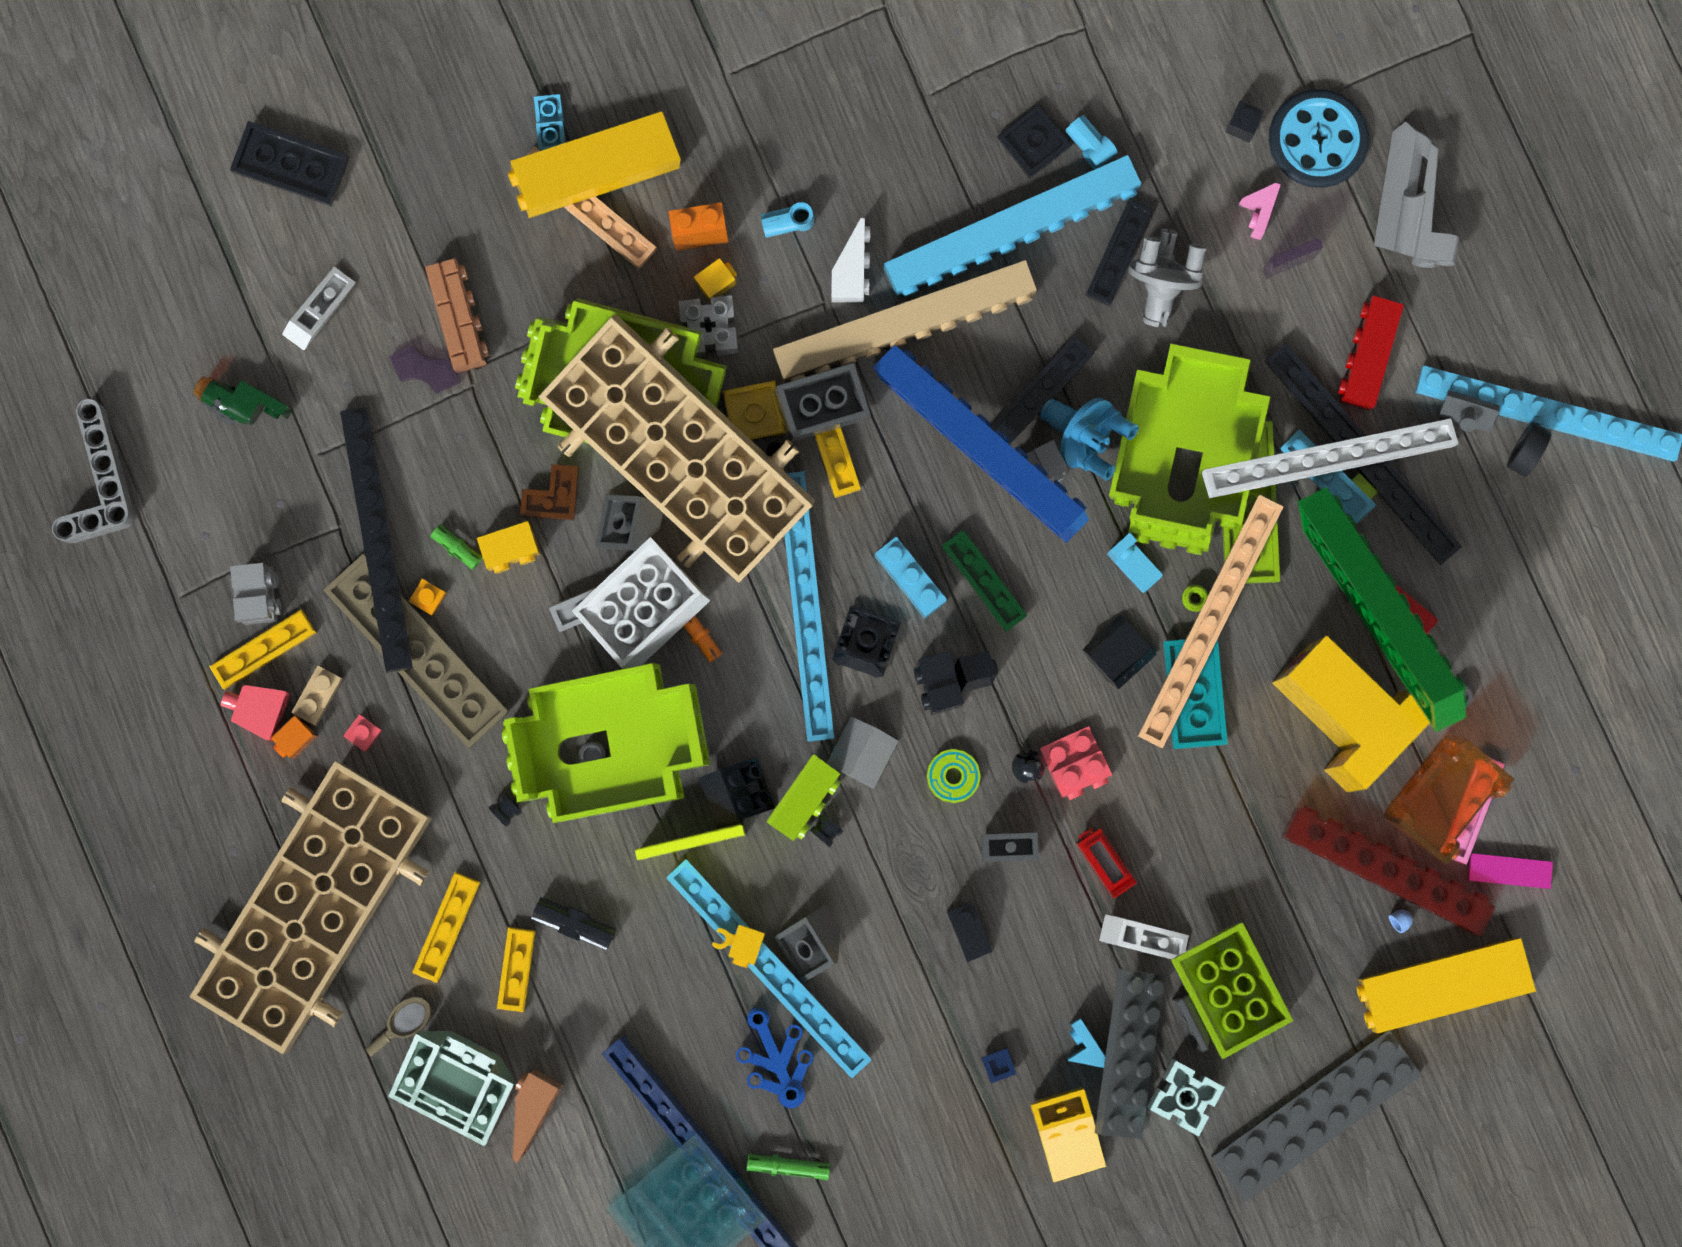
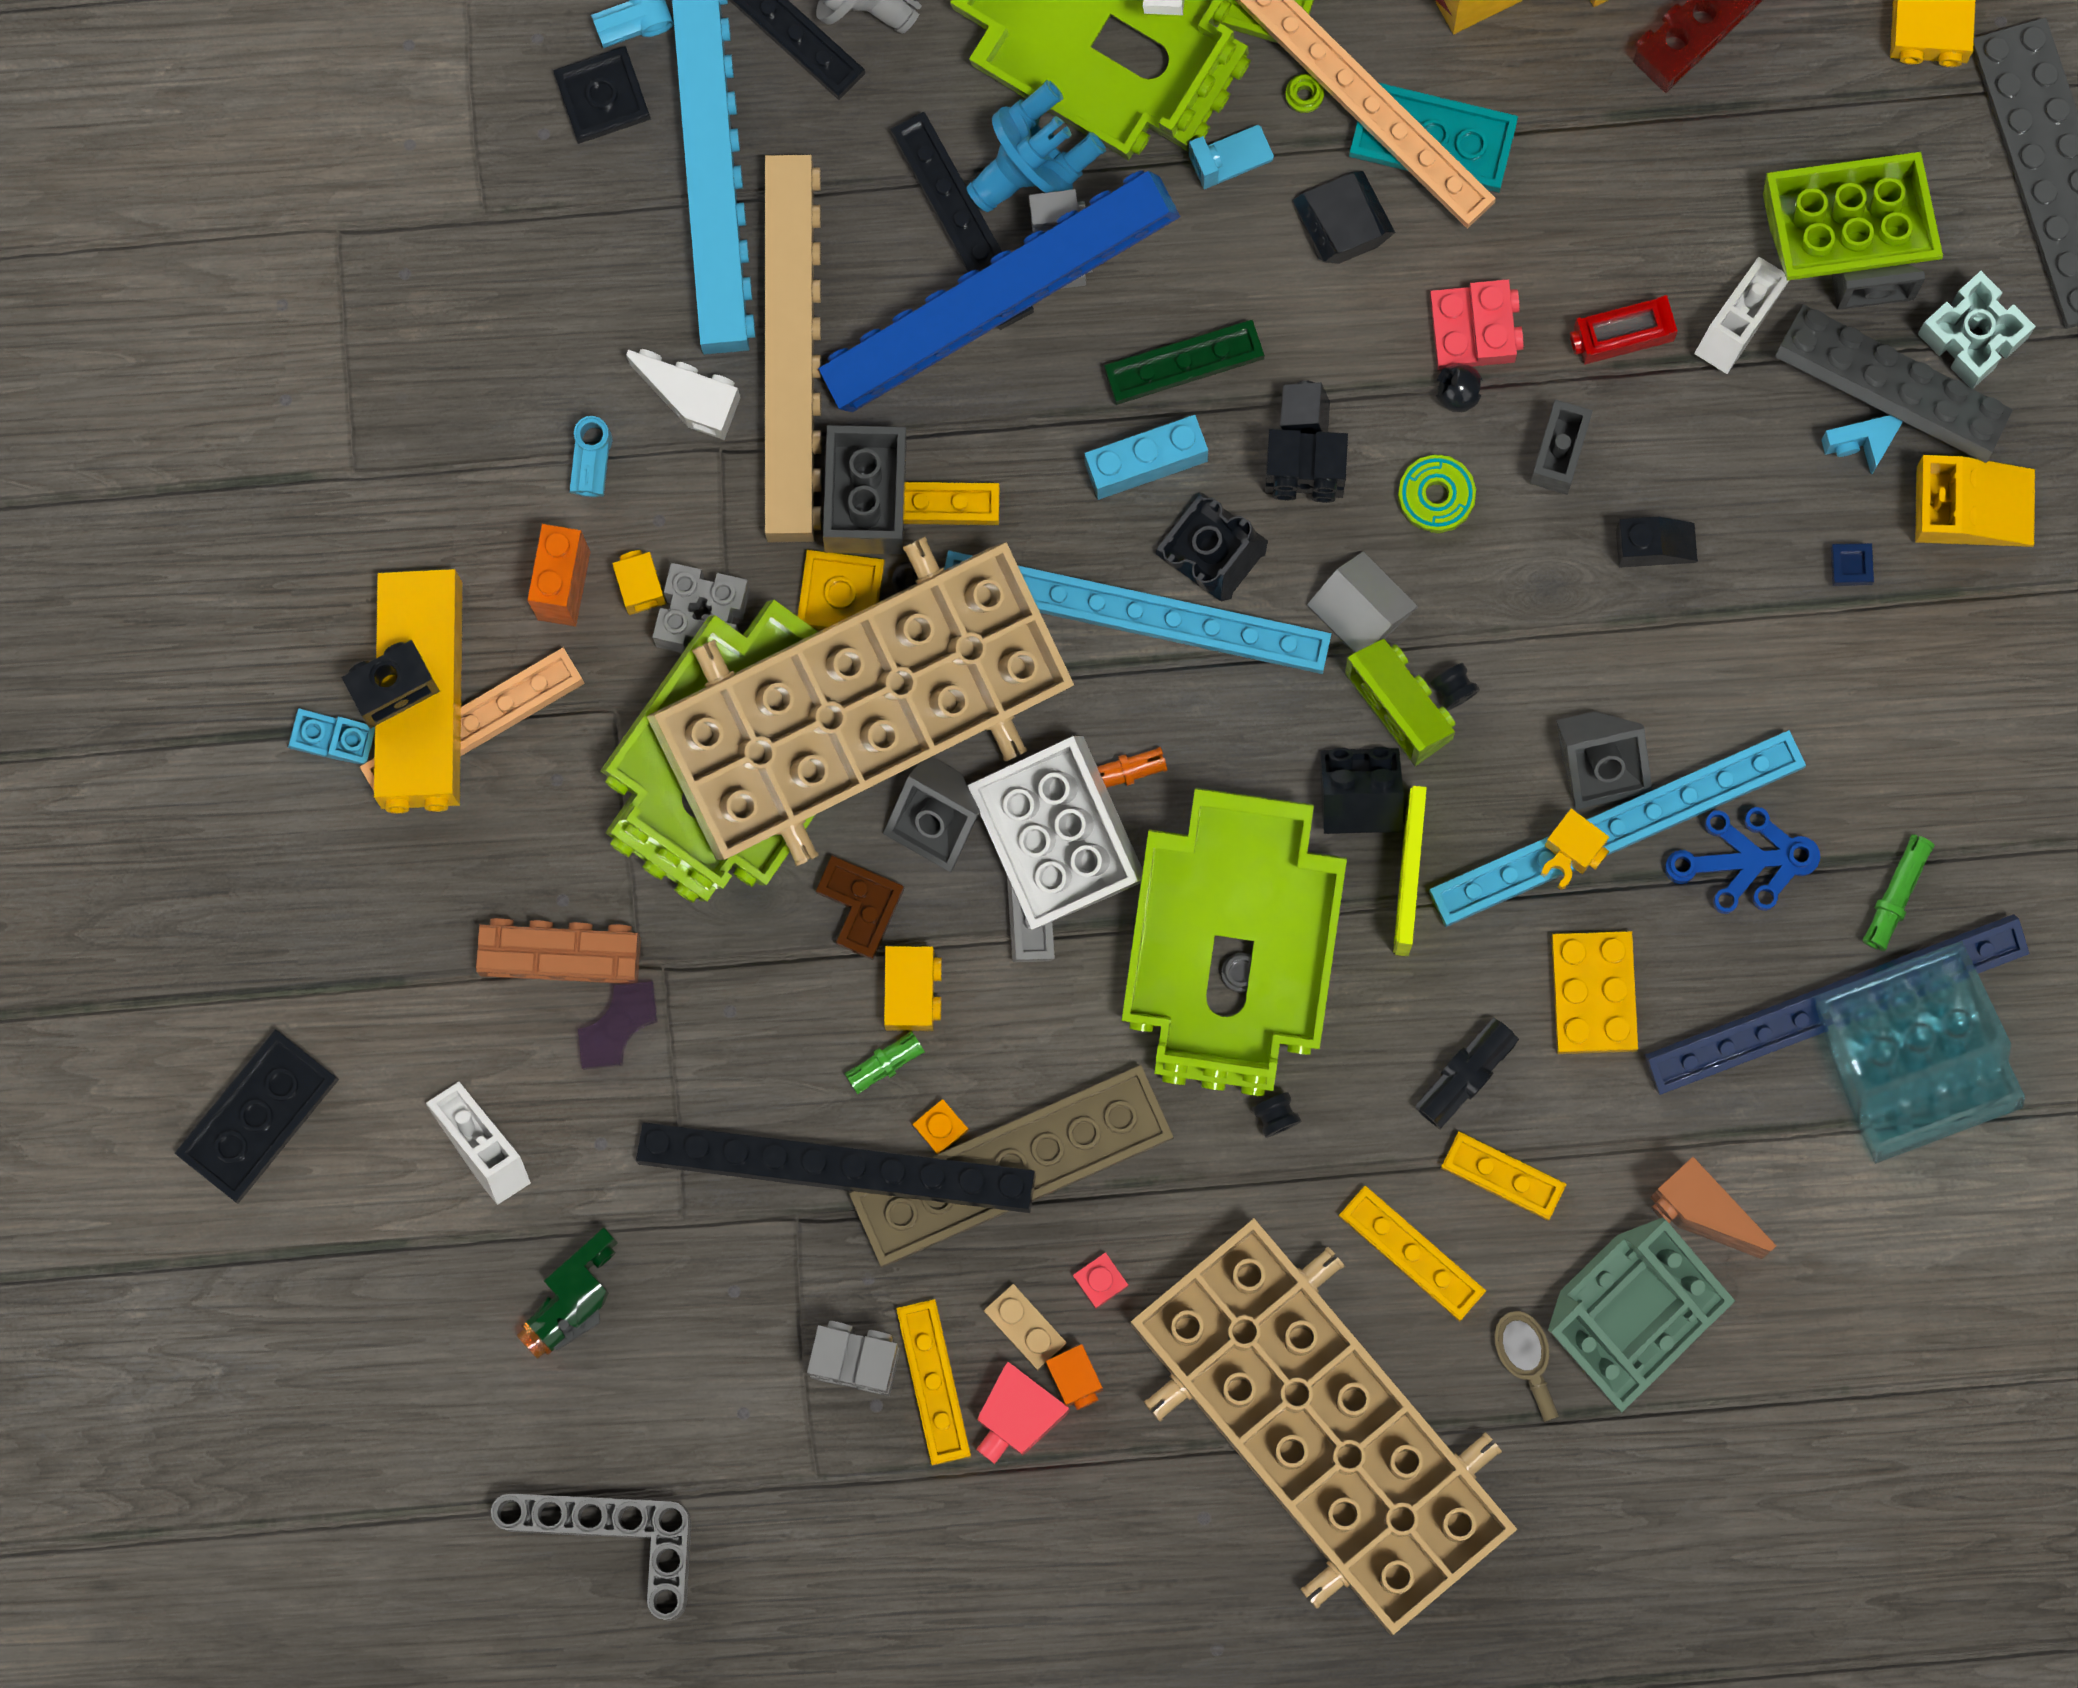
camera: 65 degrees left, 5 degrees down
(593, 158) = (411, 687): none -> black brick
(656, 989) = (1594, 992): none -> yellow plate

